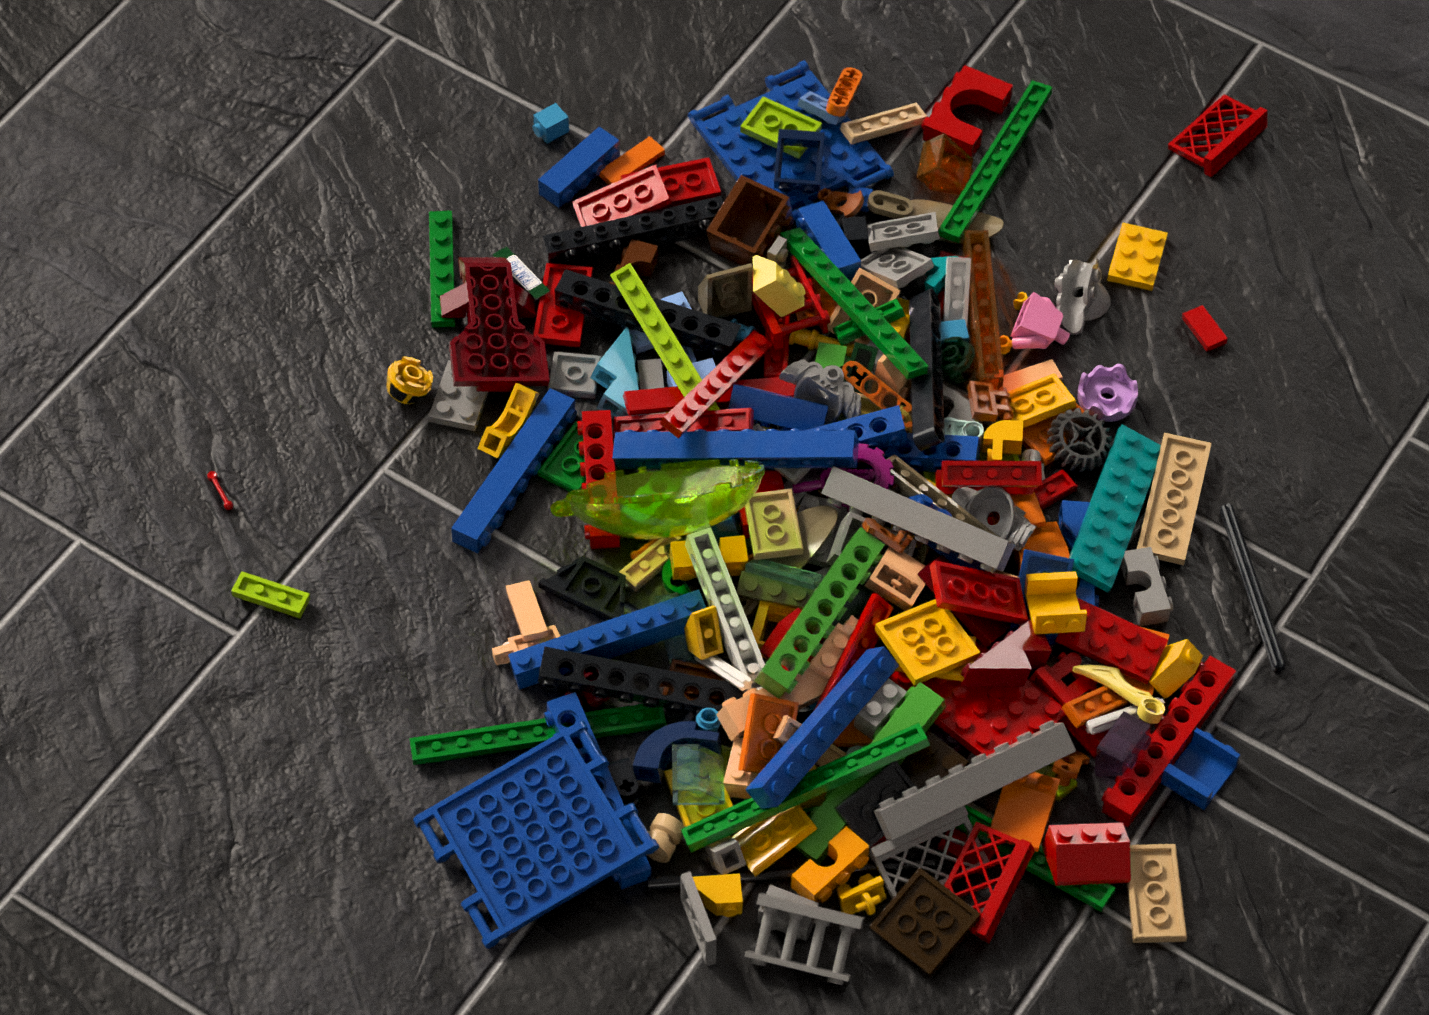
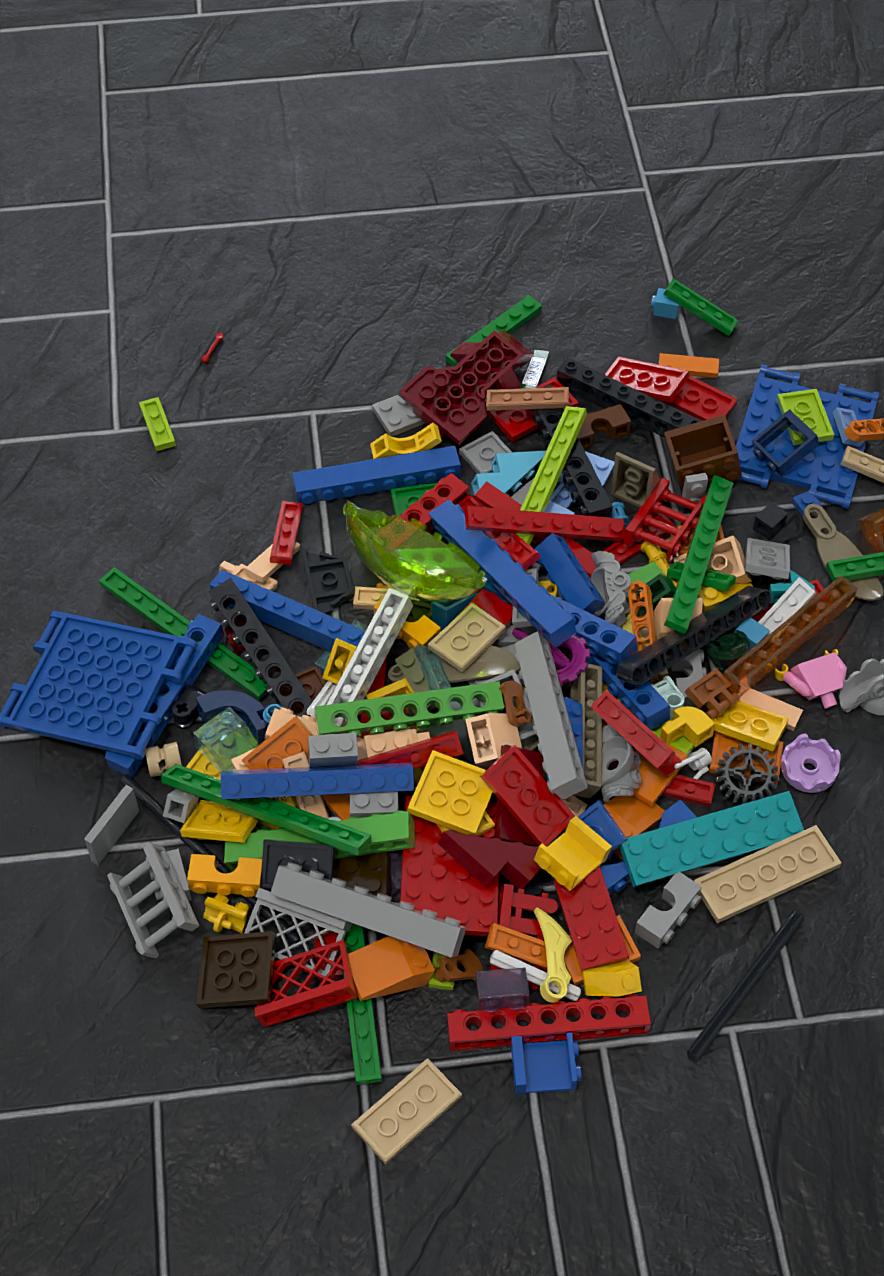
camera: 50 degrees right, 0 degrees up
(408, 380) = (383, 372): yellow cone -> none
(509, 580) = (286, 533): none -> red tile
(565, 296) = (527, 398): none -> nougat tile
(579, 167) = (649, 341): blue brick -> none
(585, 103) = (700, 307): none -> green tile
(720, 893) = (150, 824): yellow slope -> none
(776, 286) = (659, 499): light yellow slope -> none
(811, 691) = (332, 750): none -> light grey brick
(826, 233) = (745, 507): blue brick -> none
(832, 198) = (784, 488): dark orange piece -> none
(903, 232) = (802, 544): light grey plate -> none
(1088, 853) = (388, 1037): red slope -> none

